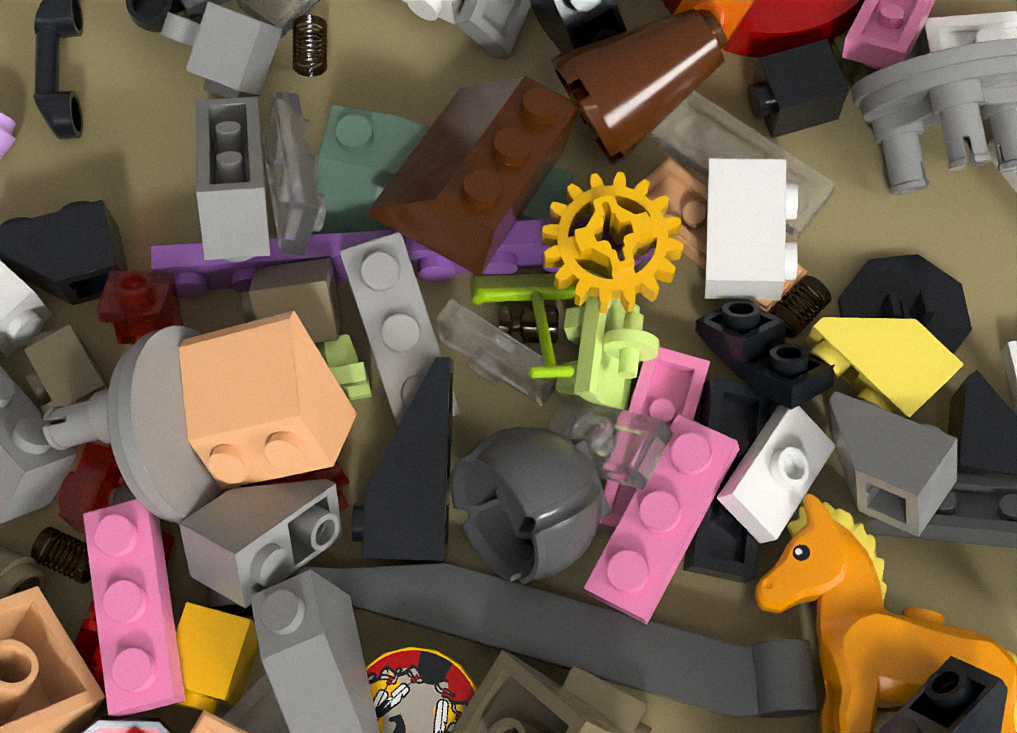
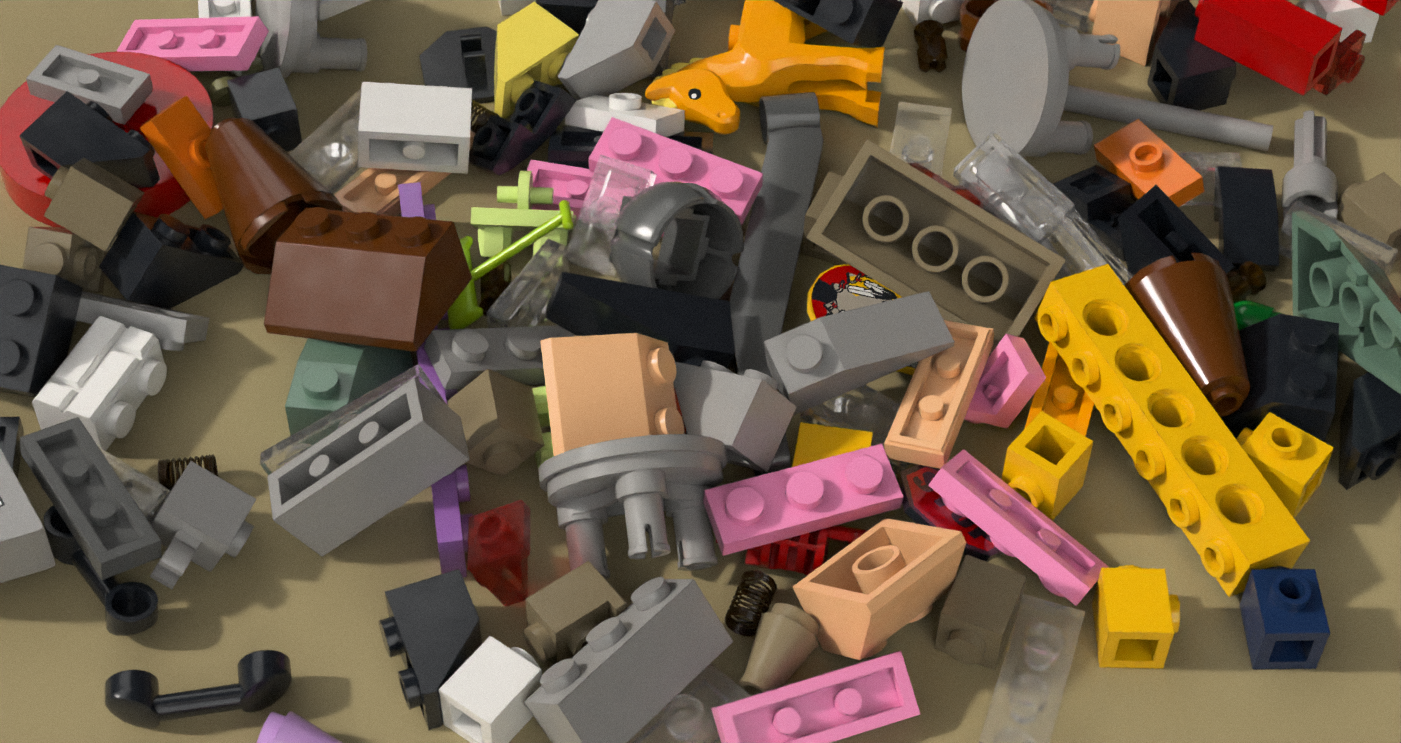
camera: 100 degrees left, 20 degrees down
(89, 485) = (706, 569): clear red bracket -> none
(635, 231) = (440, 185): yellow gear -> none

